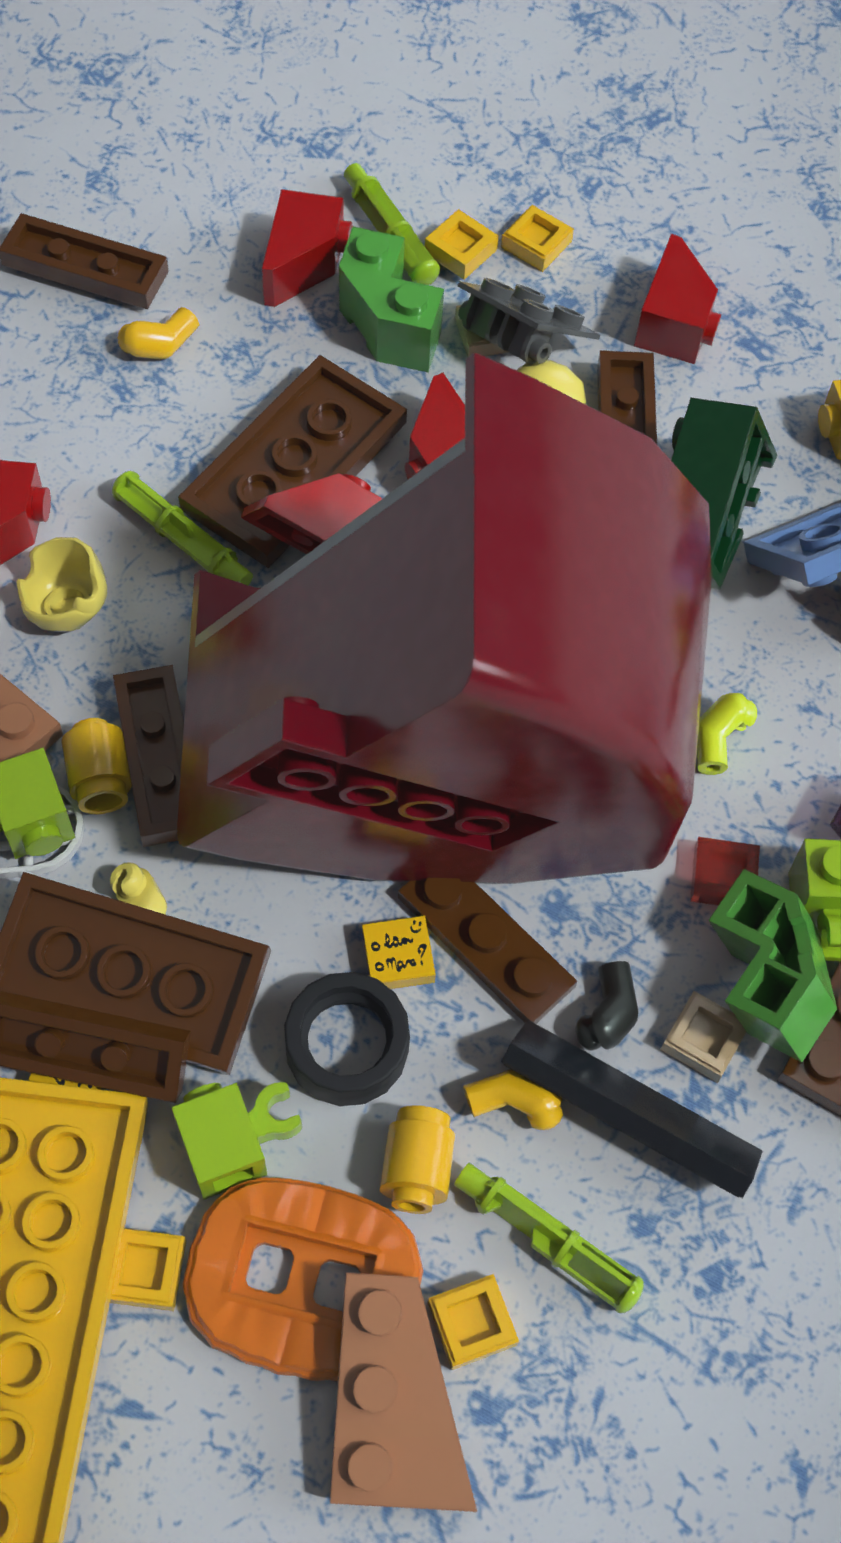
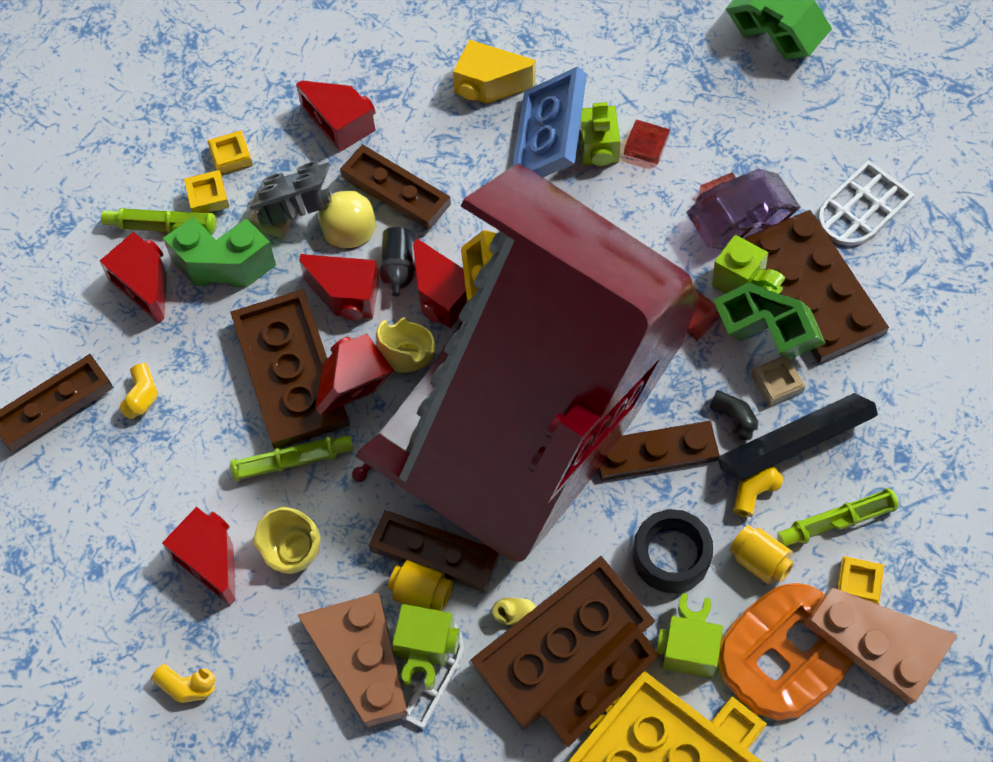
camera: 50 degrees left, 0 degrees up
(399, 952) = (637, 497): yellow tile -> none
(721, 454) = (466, 160): dark green wedge -> none

